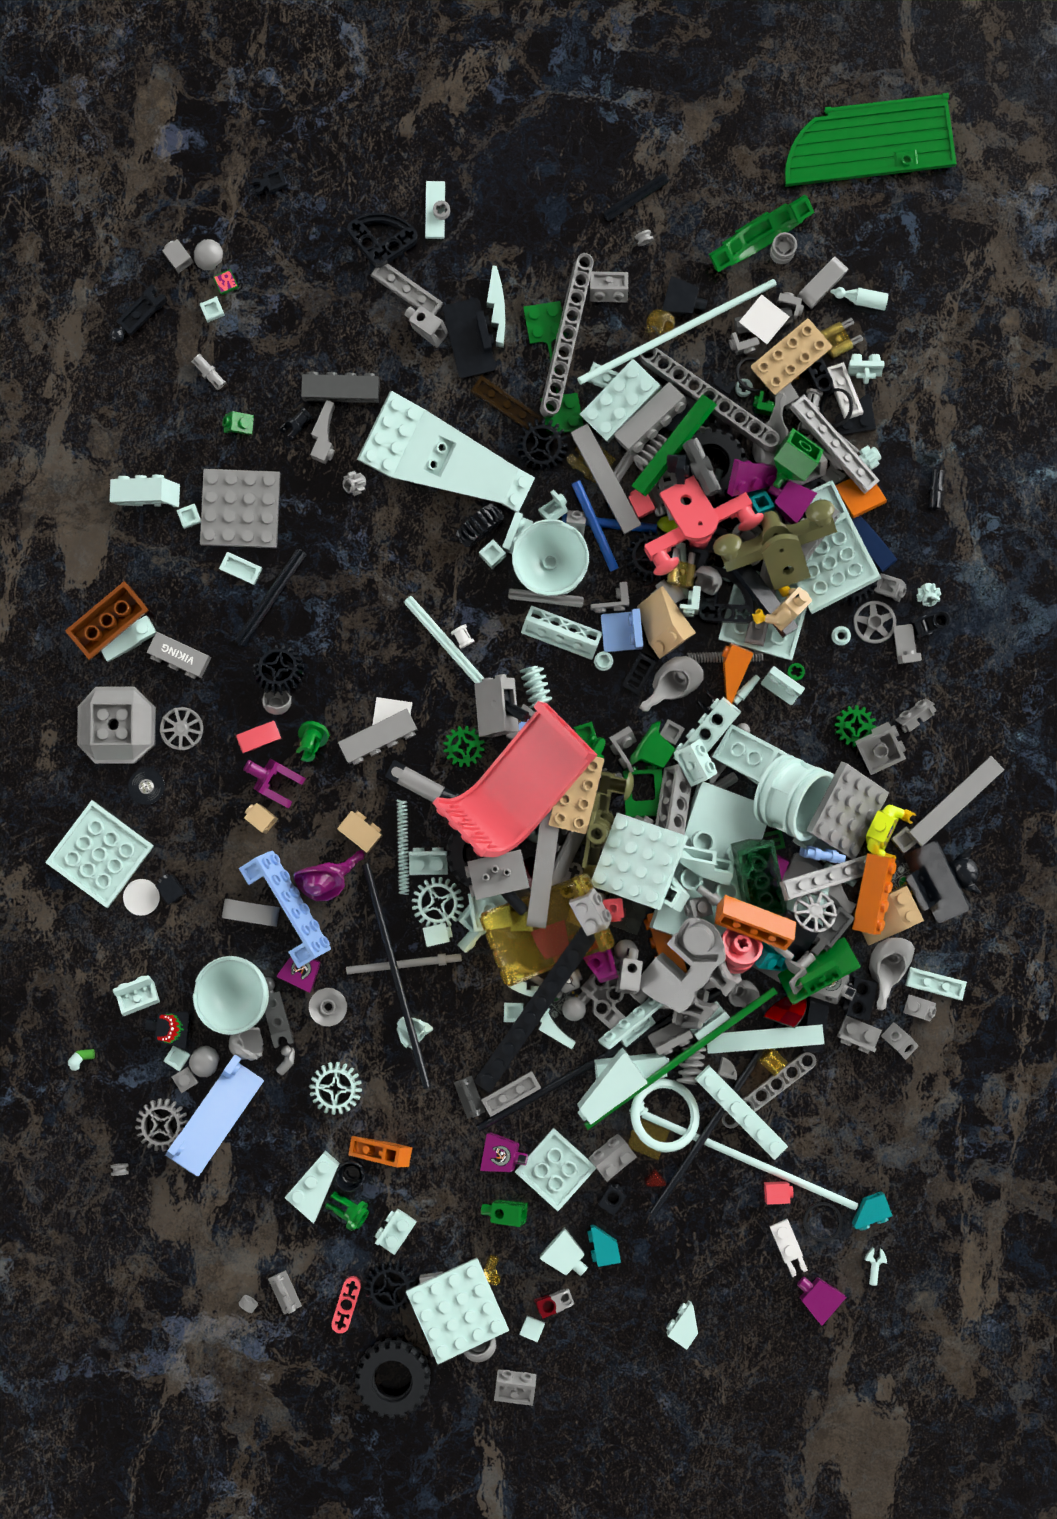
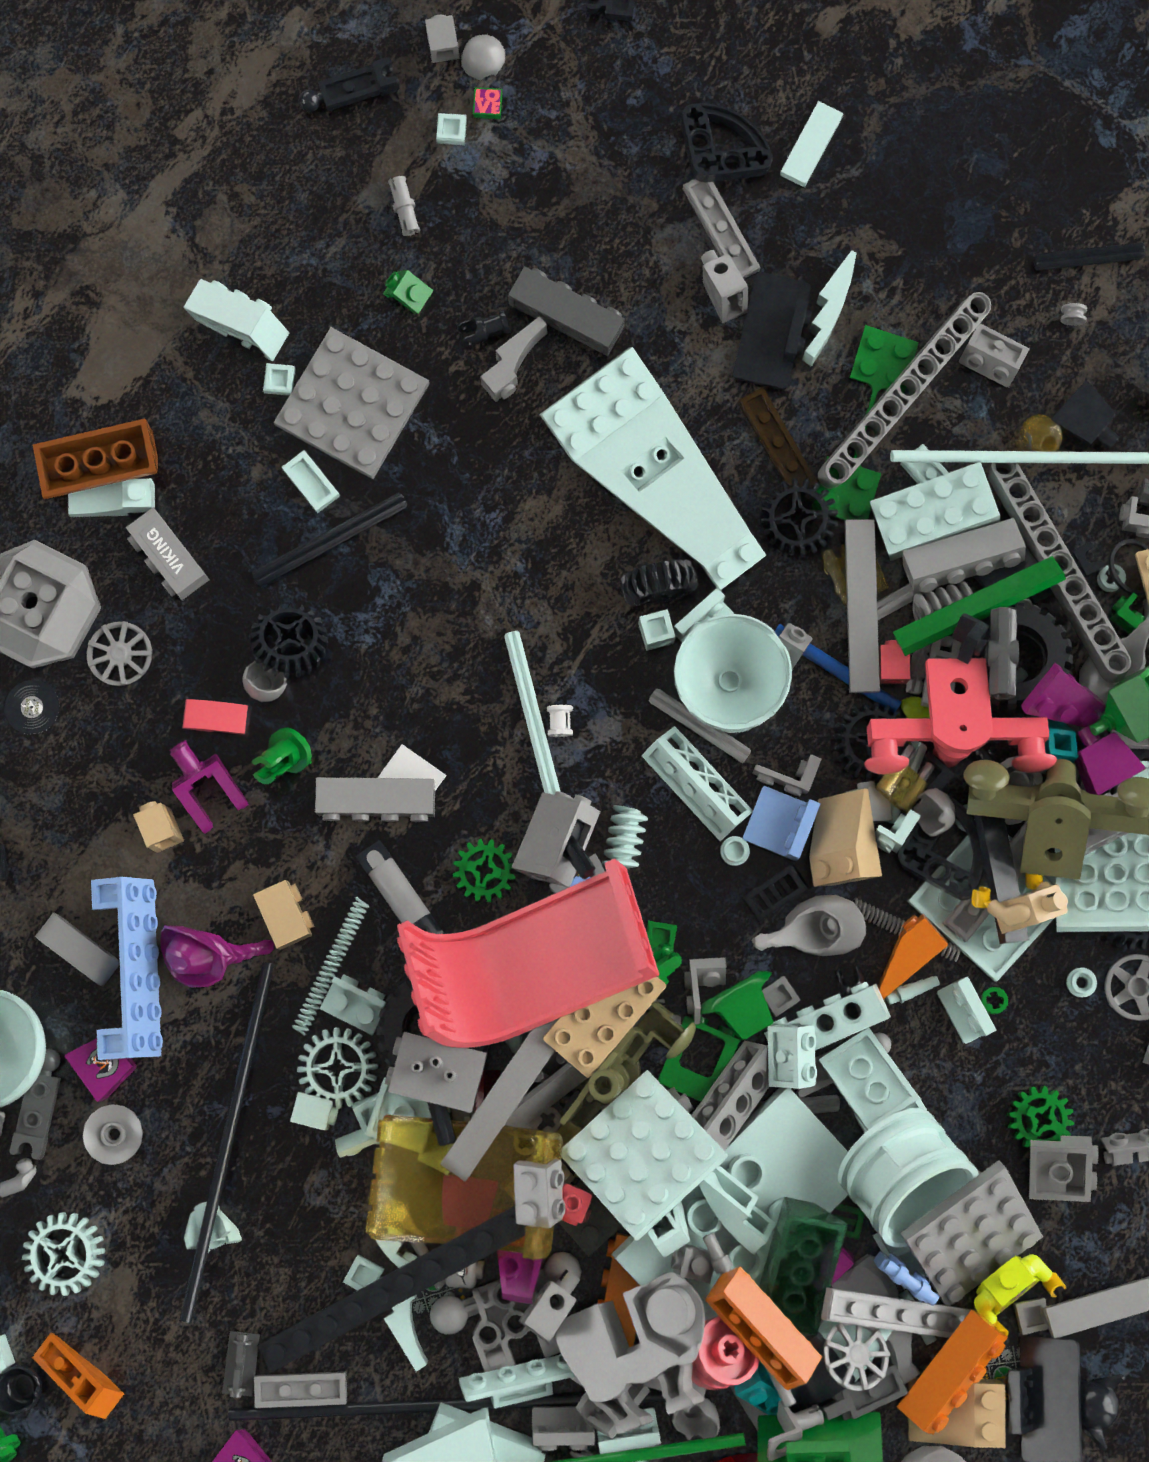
camera: 30 degrees right, 5 degrees down
(354, 483) = (520, 443): light grey gear -> none
(441, 959) = (302, 1148): light grey bar -> none
(443, 215) = (819, 155): light grey bush -> none
(554, 508) = (773, 611): light aqua bracket -> none
(595, 526) = (815, 664): blue piece -> none

